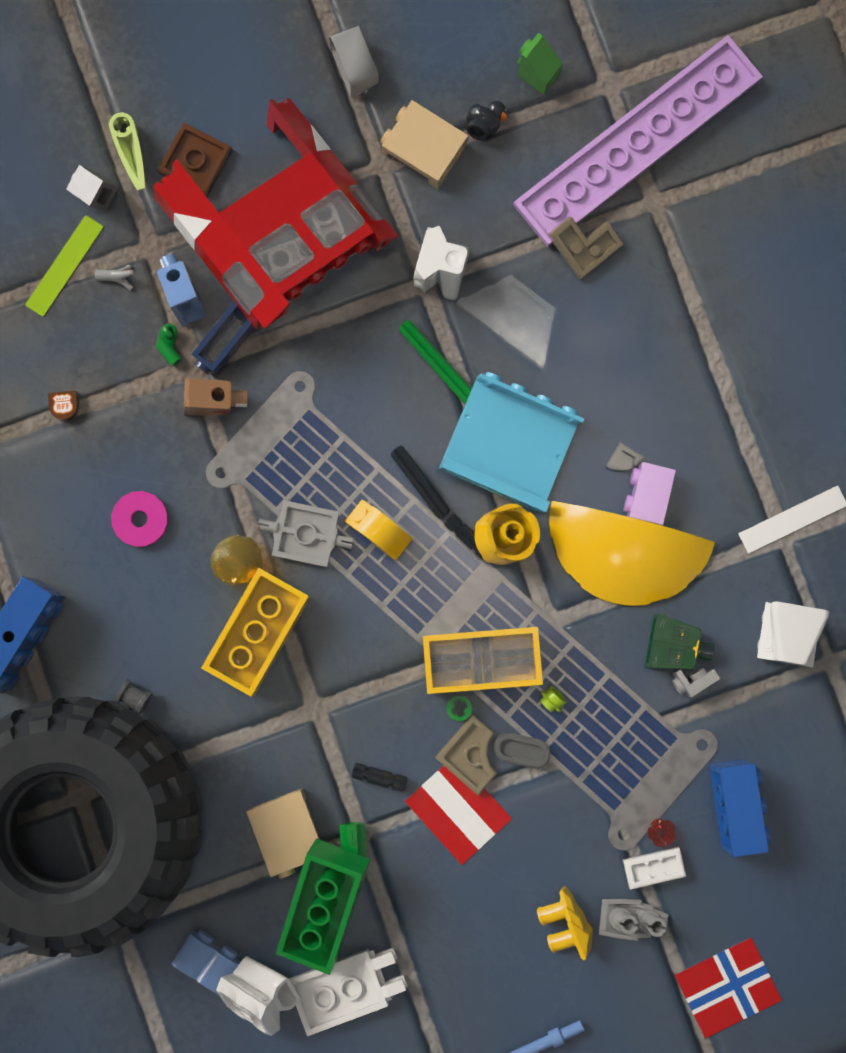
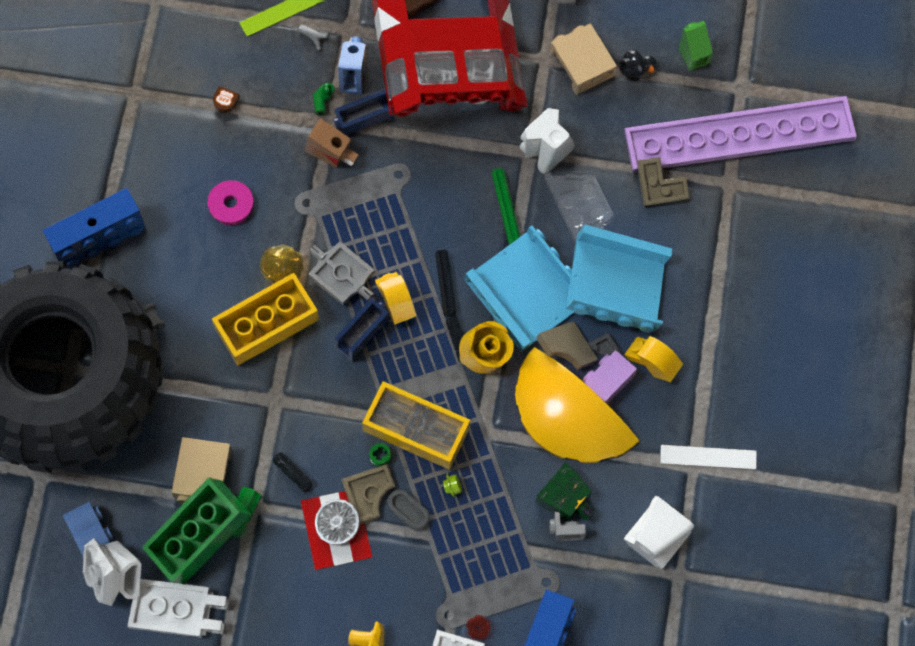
camera: 30 degrees right, 15 degrees down
(363, 583) = (361, 329): none -> dark blue window
(457, 805) = (337, 522): none -> light grey wheel
(588, 480) = (568, 343): none -> dark tan tile
(600, 382) = (617, 278): none -> medium azure panel
(684, 445) = (656, 357): none -> yellow brick

